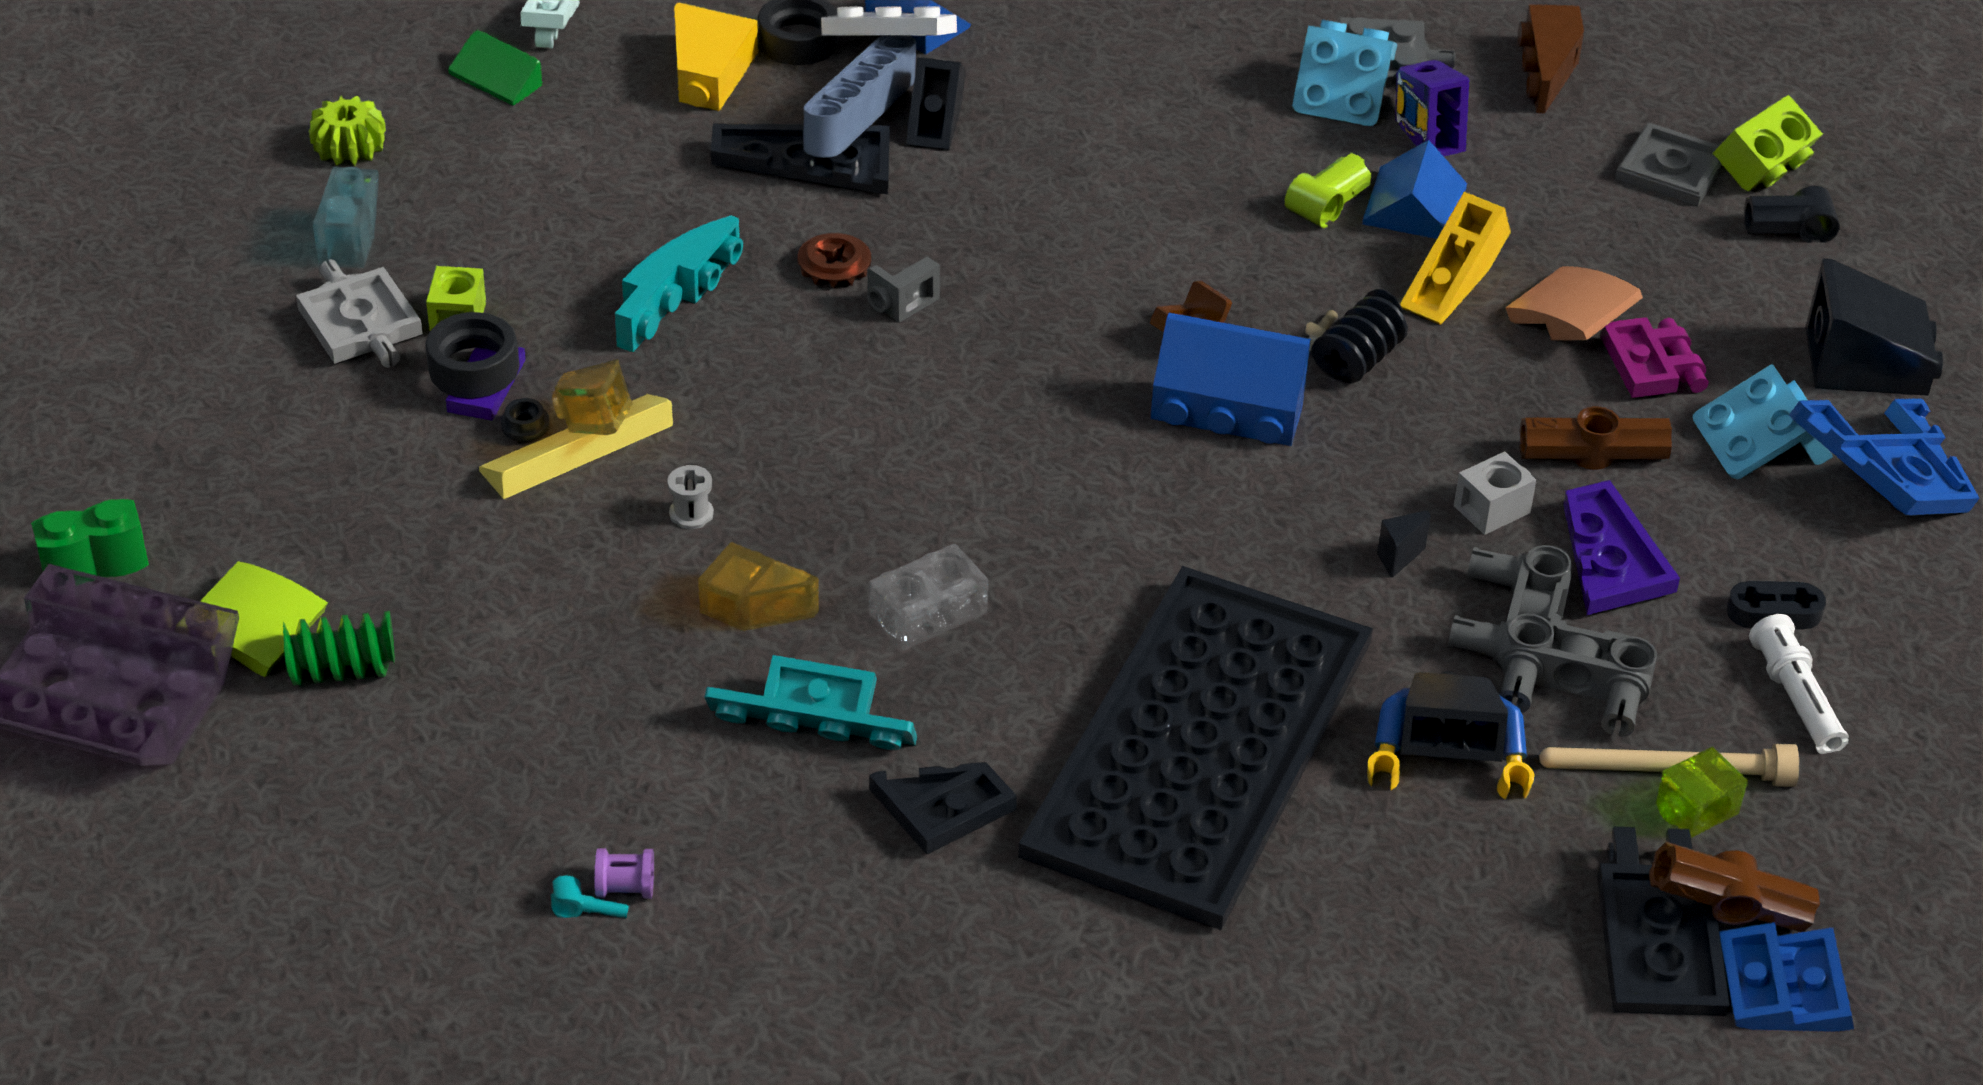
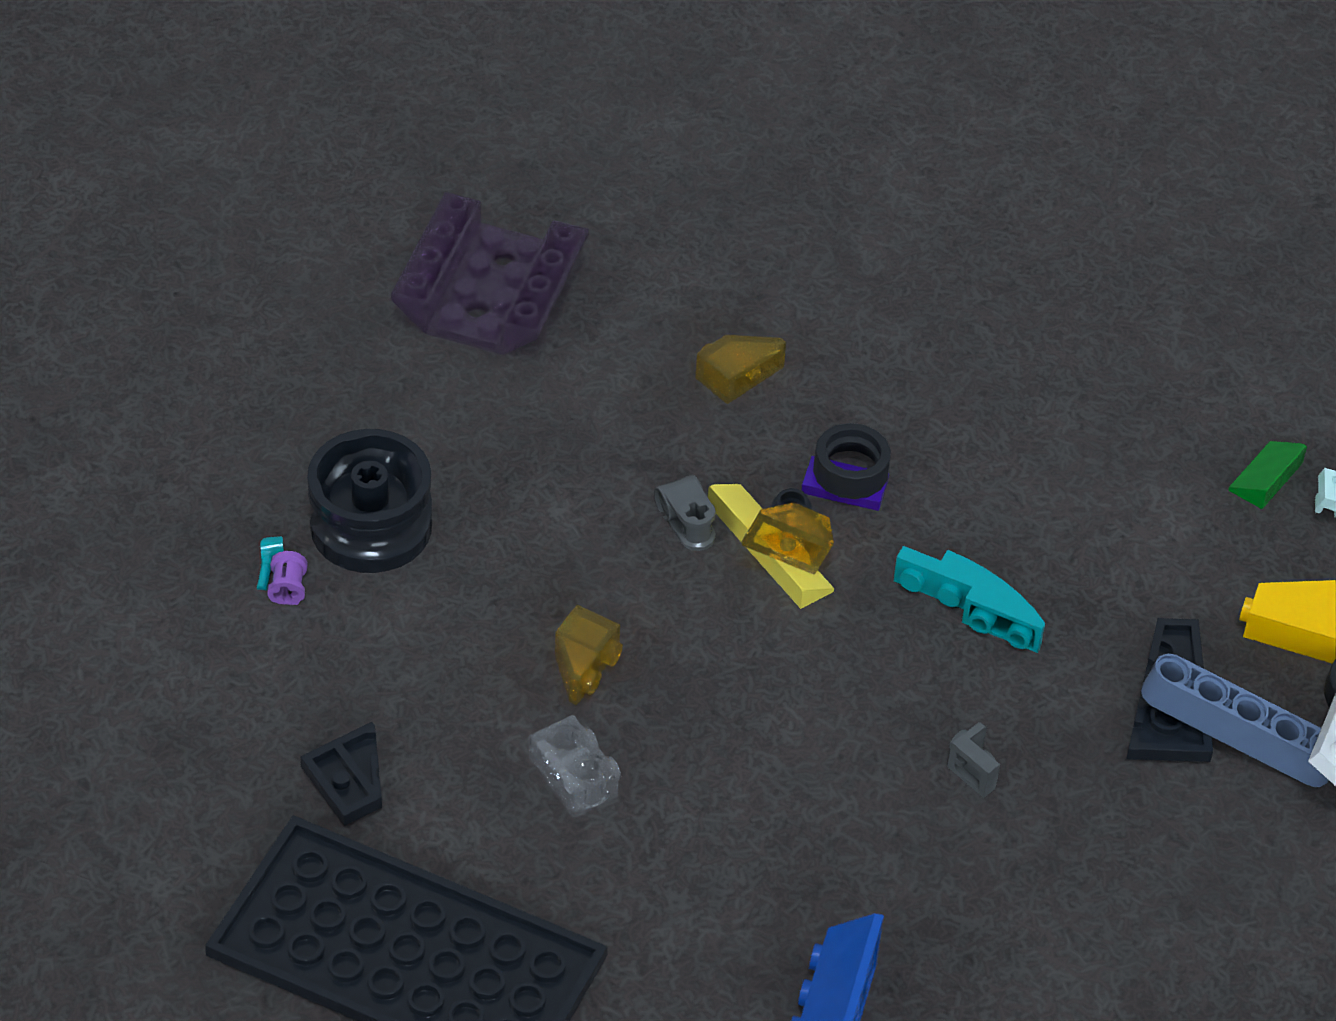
camera: 90 degrees right, 5 degrees up
(95, 541) = (631, 259): green brick -> none
(263, 605) = (563, 360): lime slope -> none
(293, 456) = (738, 364): none -> clear yellow slope
(339, 648) = (518, 402): green piece -> none
(347, 130) = (1156, 373): lime gear -> none
(347, 217) = (1029, 375): clear light blue slope -> none
(358, 314) = (915, 397): light grey plate -> none
(455, 292) = (932, 454): lime brick -> none
(517, 772) = (370, 500): none -> black piece
(528, 502) = (687, 512): none -> dark grey piece
(683, 497) = (693, 604): light grey bush -> none
(815, 697) = (454, 691): teal bracket -> none
(830, 247) = (1013, 702): copper gear -> none
(935, 103) = (1259, 789): black slope -> none
(1200, 302) = (947, 979): reddish brown bracket -> none

